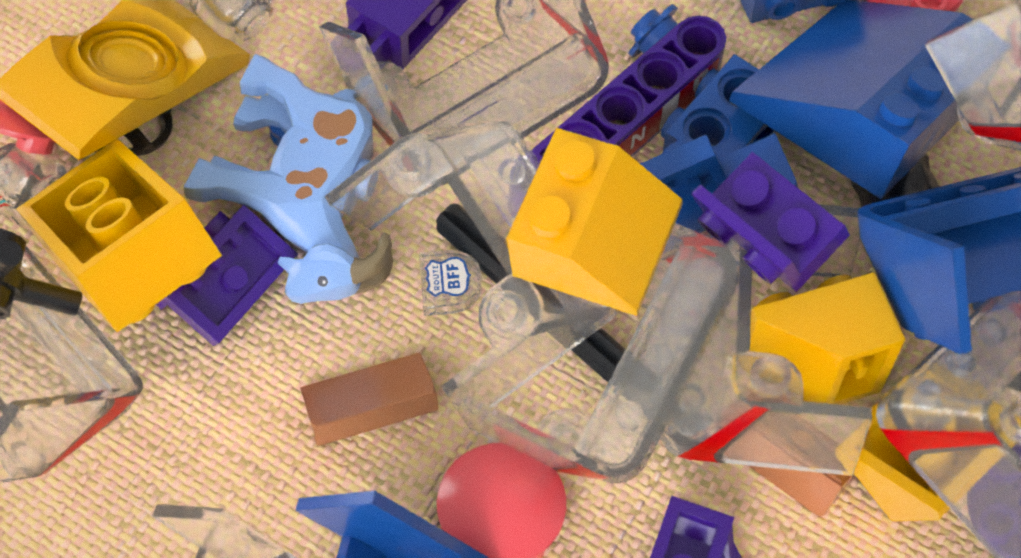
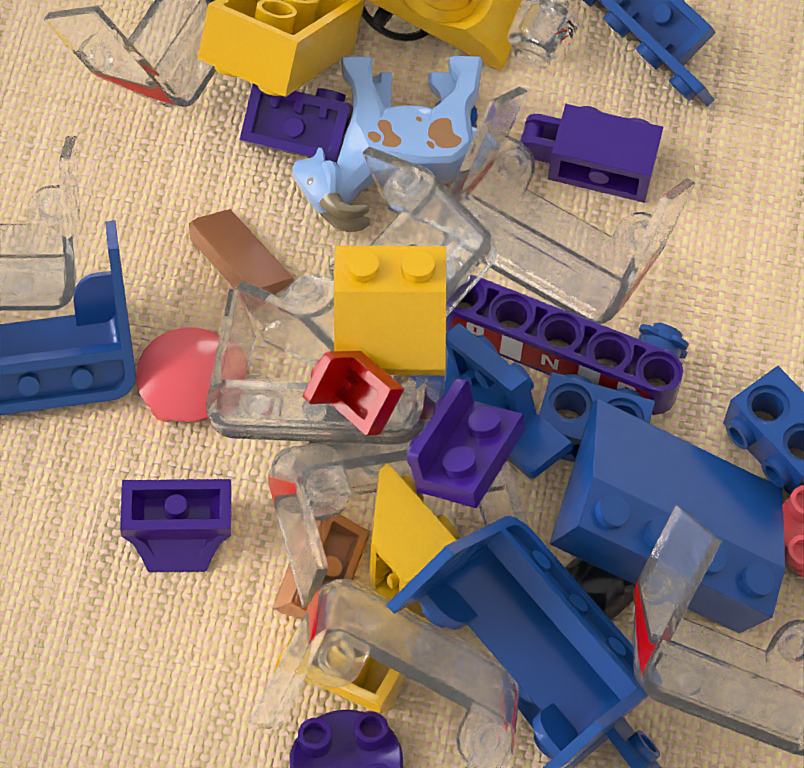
camera: 65 degrees right, 0 degrees up
(683, 290) = (355, 389): none -> red bracket

